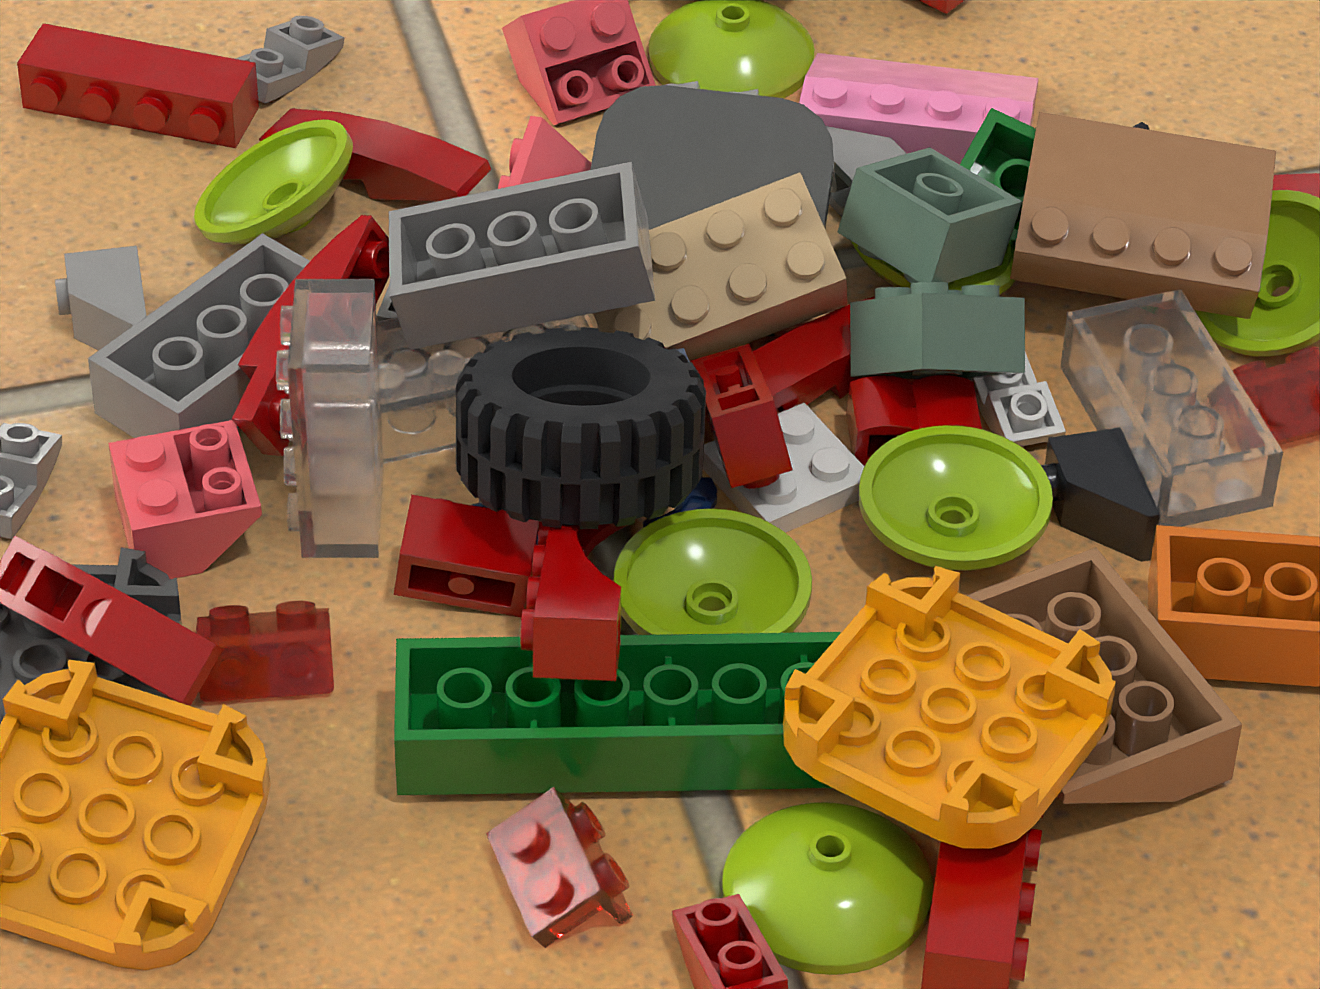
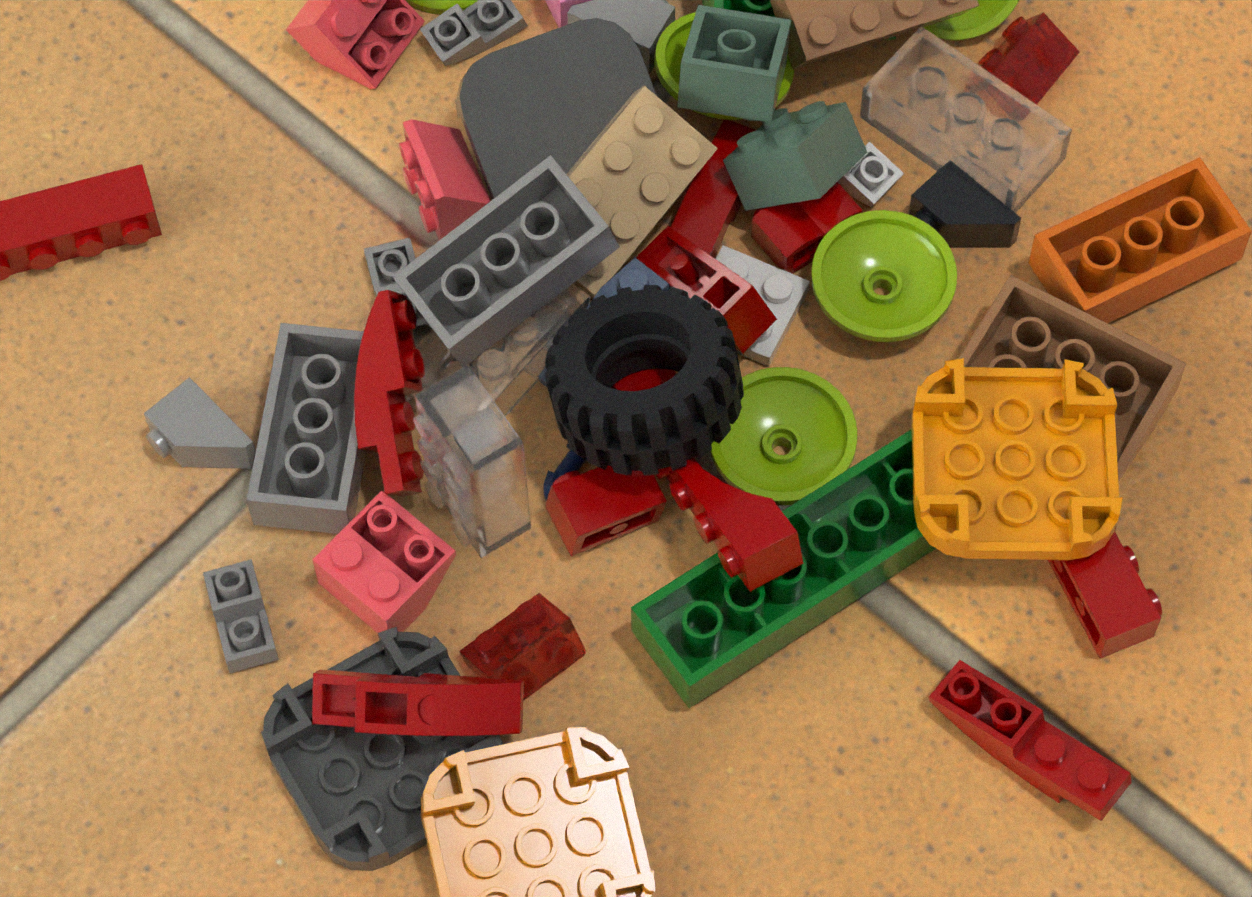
camera: 30 degrees left, 20 degrees up
(275, 184) = (237, 263): lime dish -> none
(292, 55) = (140, 132): light grey slope -> none
(398, 160) = (277, 192): red slope -> none
(558, 866) = (832, 704): clear red bracket -> none
(831, 886) = (1000, 641): lime dish -> none

